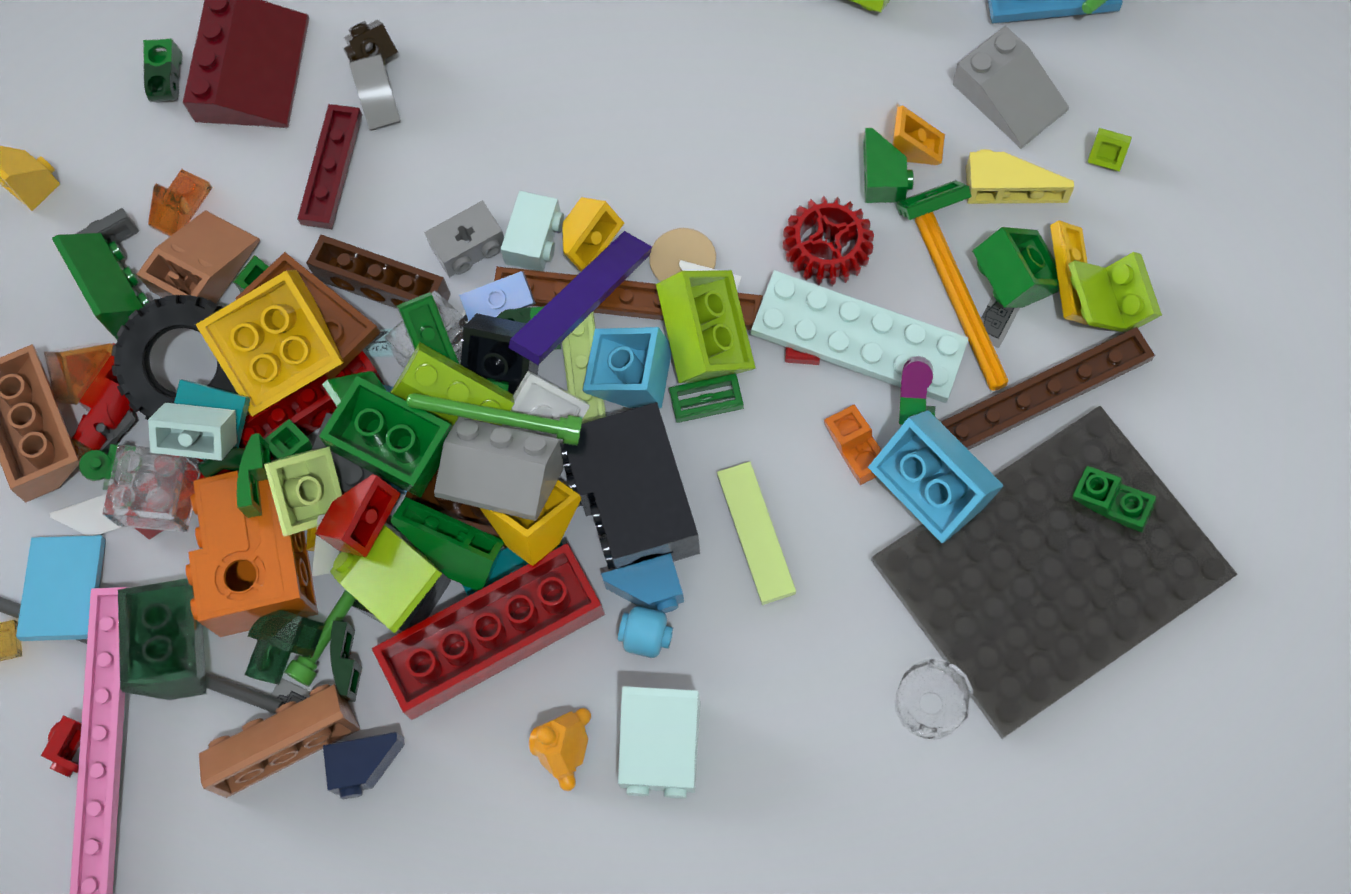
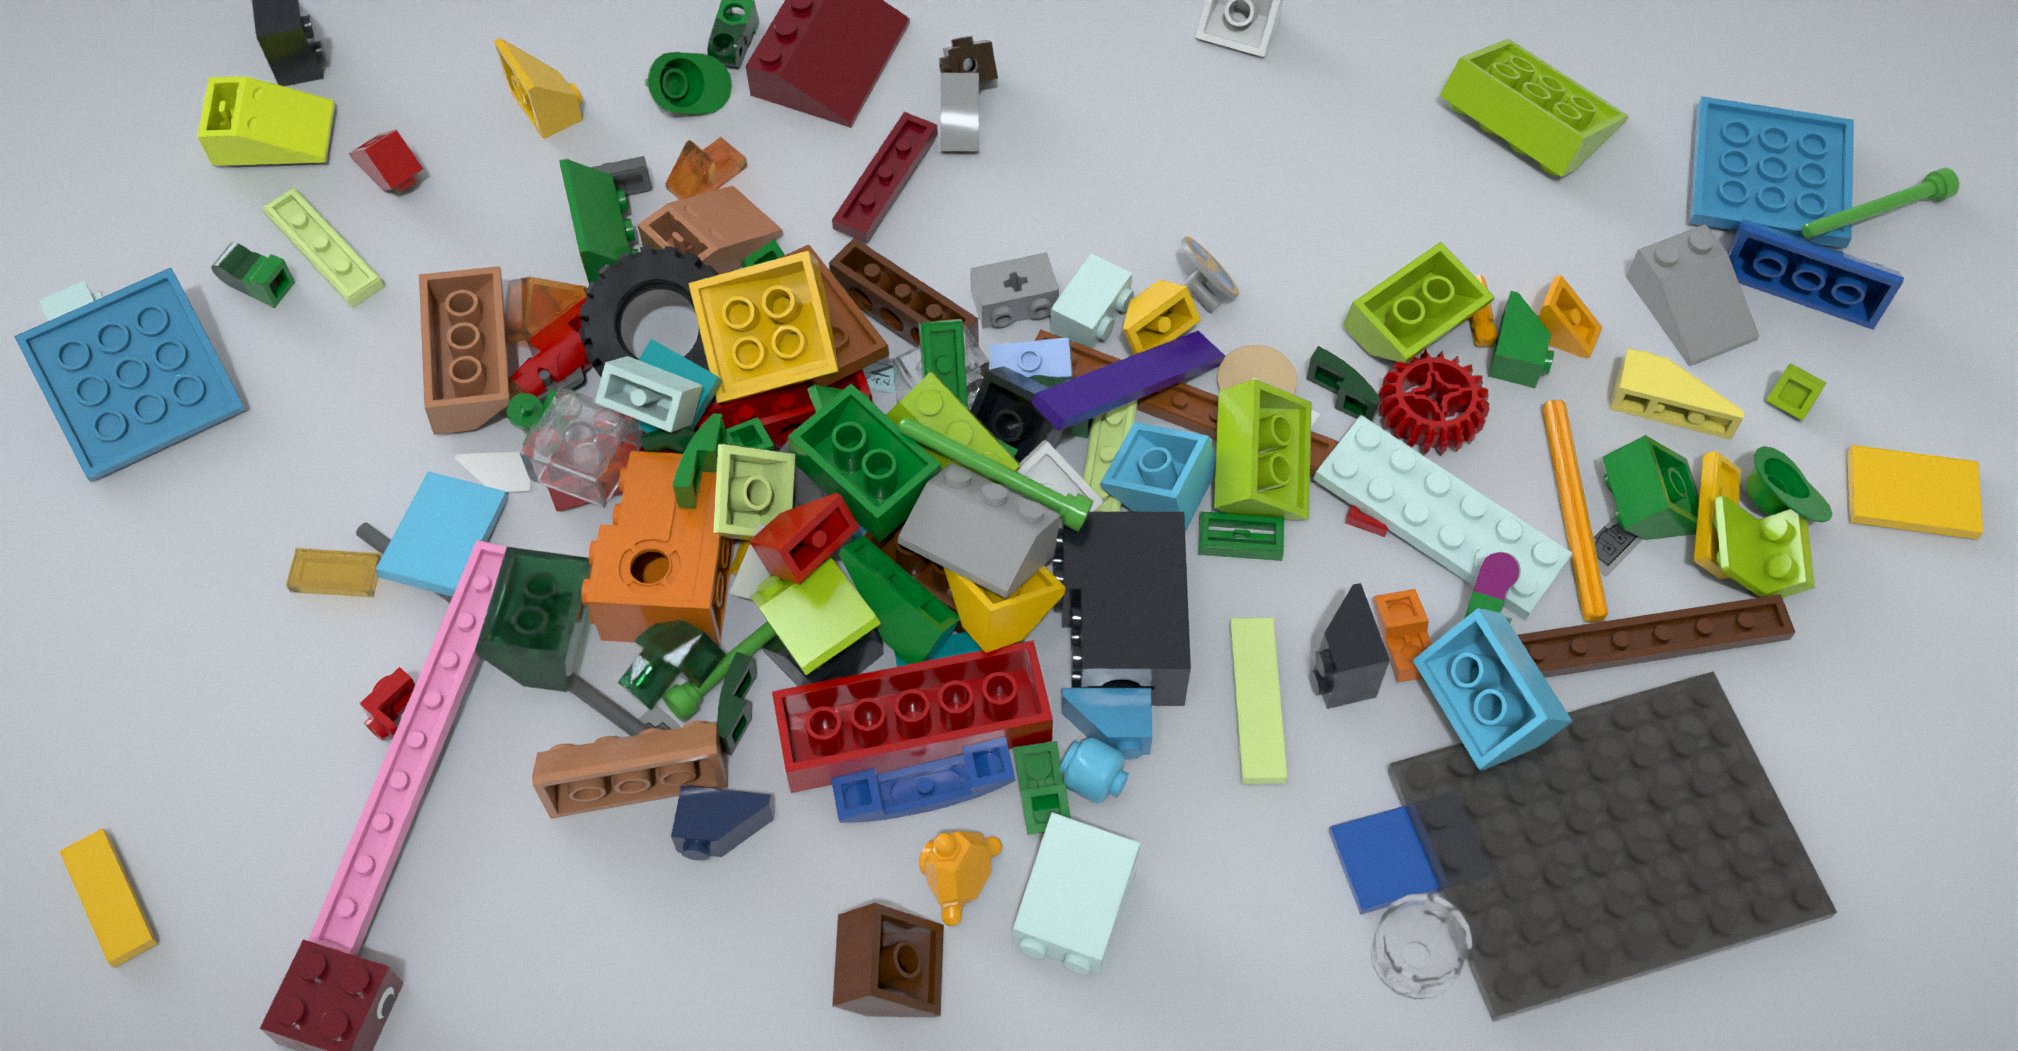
camera: 10 degrees right, 10 degrees down
(139, 129) = (688, 83): none -> green piece
(514, 683) = (925, 786): none -> blue slope
(529, 837) = (888, 963): none -> reddish brown slope
(608, 656) = (1040, 784): none -> green slope
(618, 177) = (1207, 269): none -> shield
(763, 250) = (1354, 392): none -> dark green slope
(794, 162) = (1416, 306): none -> lime slope
(818, 478) = (1350, 655): none -> black slope
(845, 148) = (1481, 322): none -> light orange axle
(886, 635) = (1382, 859): none -> blue tile
(933, 199) = (1570, 390): green tile -> none
(1098, 42) = (1812, 274): none -> blue slope
(1114, 500) = (1696, 773): green slope -> none
(1117, 236) = (1780, 485): none -> green piece
(1218, 207) = (1914, 492): none -> yellow tile

